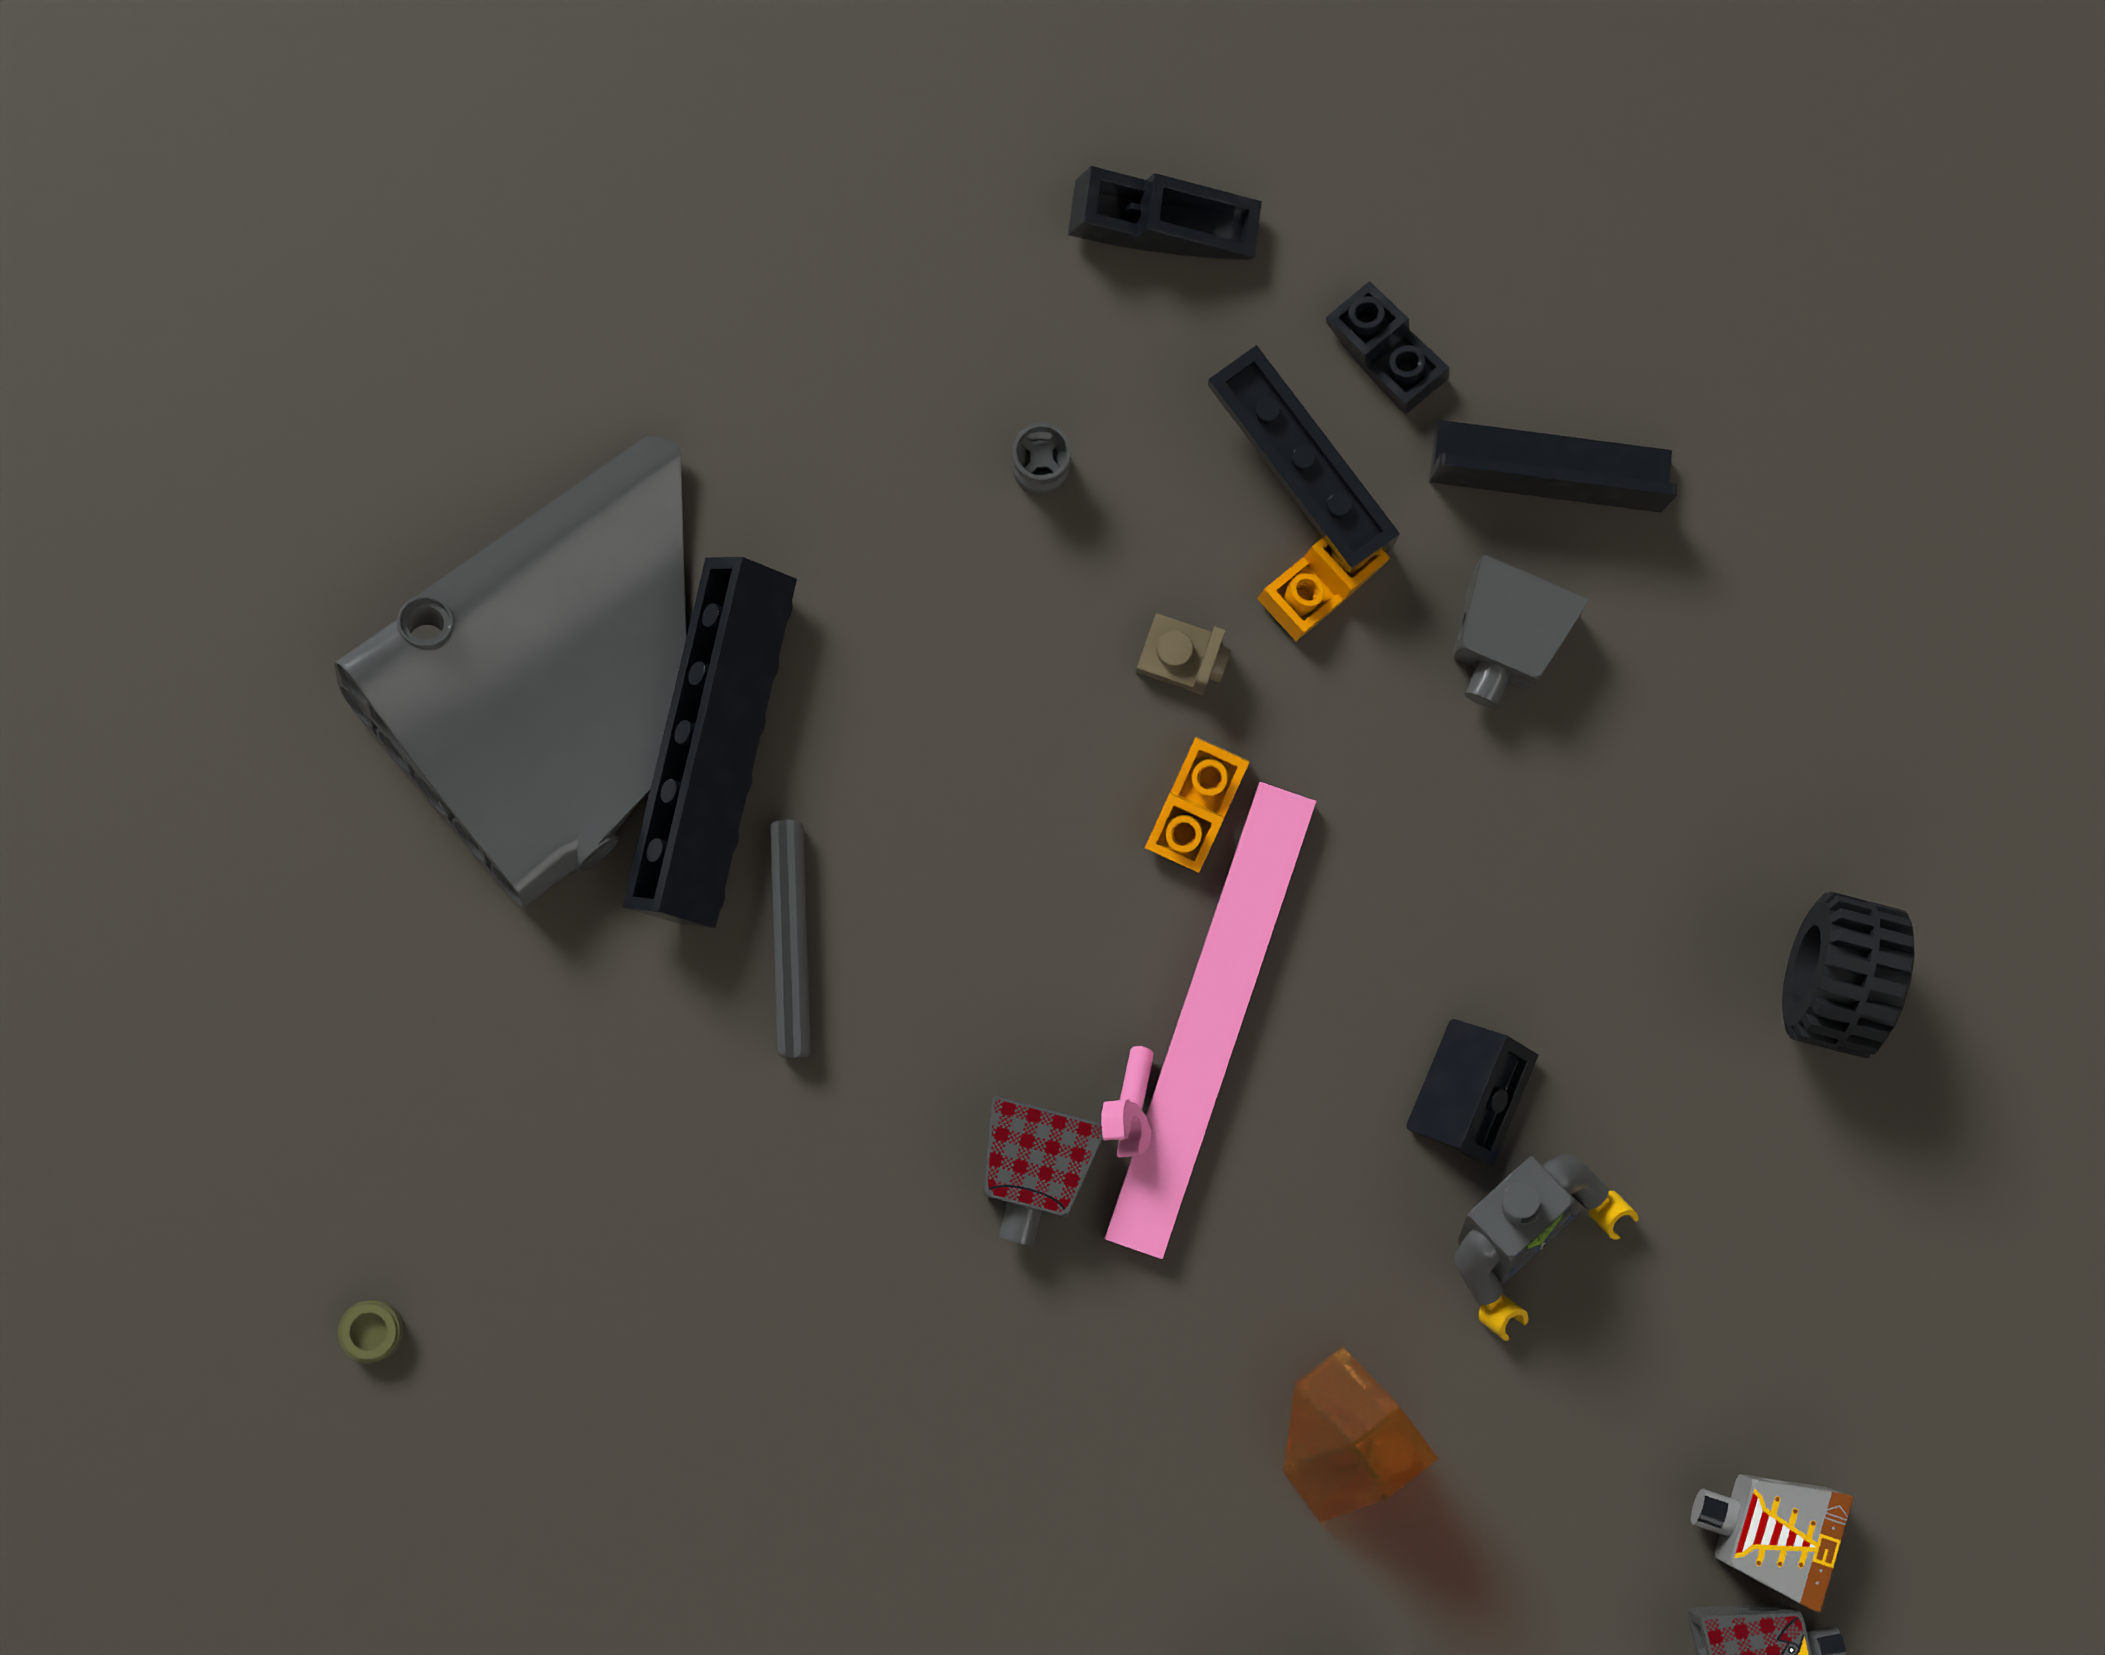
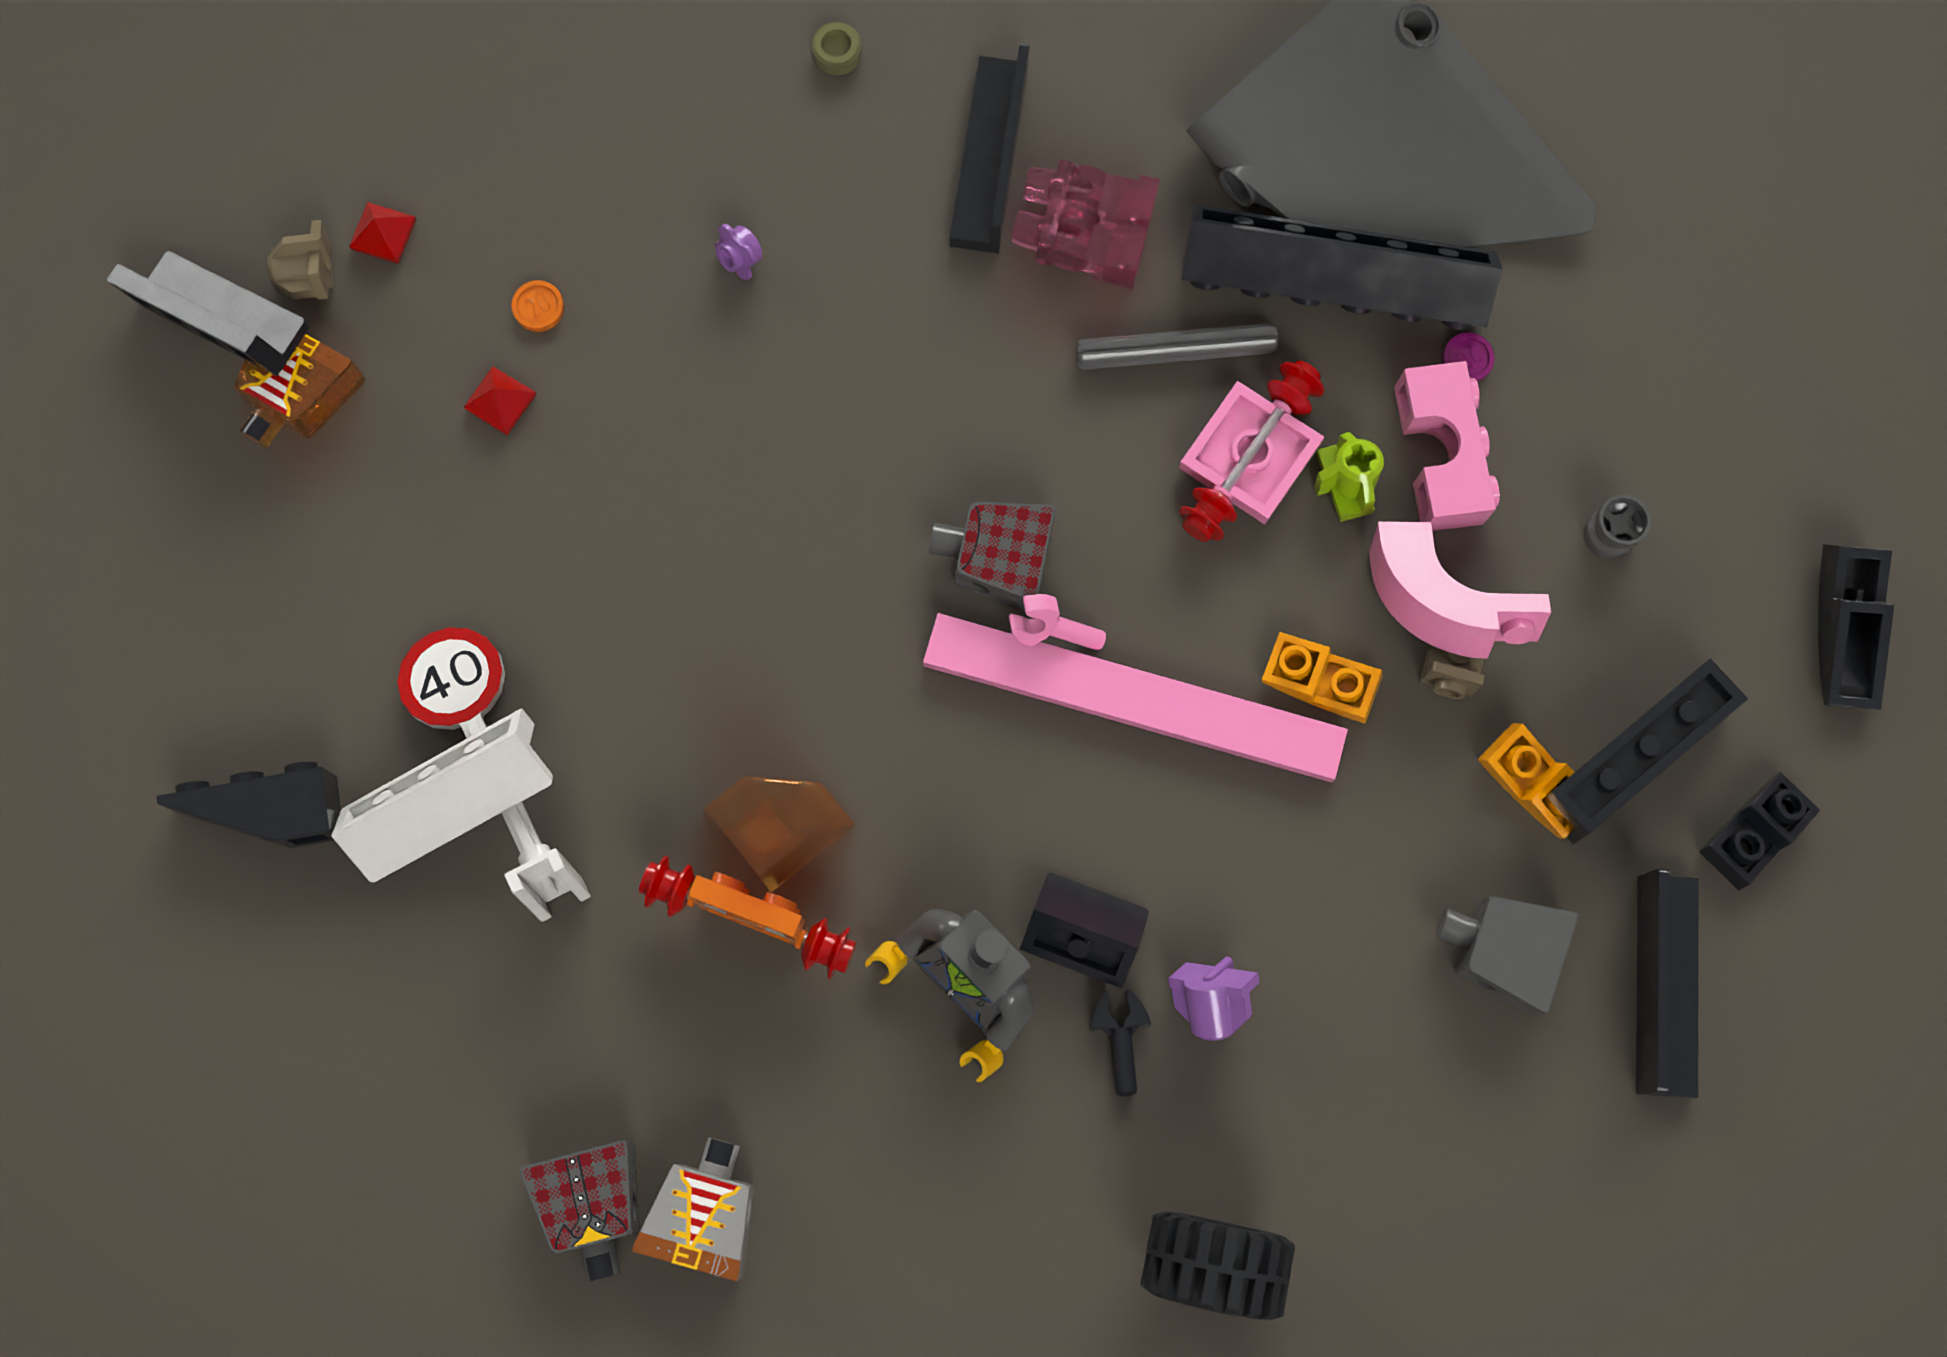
camera: 90 degrees right, 5 degrees down
(525, 1147) = (989, 152): none -> black panel
(619, 1047) = (1070, 230): none -> clear pink hips
(639, 1463) = (738, 250): none -> medium lavender plate
(822, 601) = (1473, 350): none -> magenta piece
(885, 634) = (1444, 404): none -> bright pink arch
(928, 862) = (1251, 451): none -> bright pink plate
(962, 752) = (1349, 475): none -> lime piece
(1132, 673) = (1439, 607): none -> bright pink arch
(1445, 1489) = (732, 901): none -> plate
(1554, 955) = (1213, 997): none -> medium lavender piece
(1592, 1059) = (1121, 1039): none -> black bar

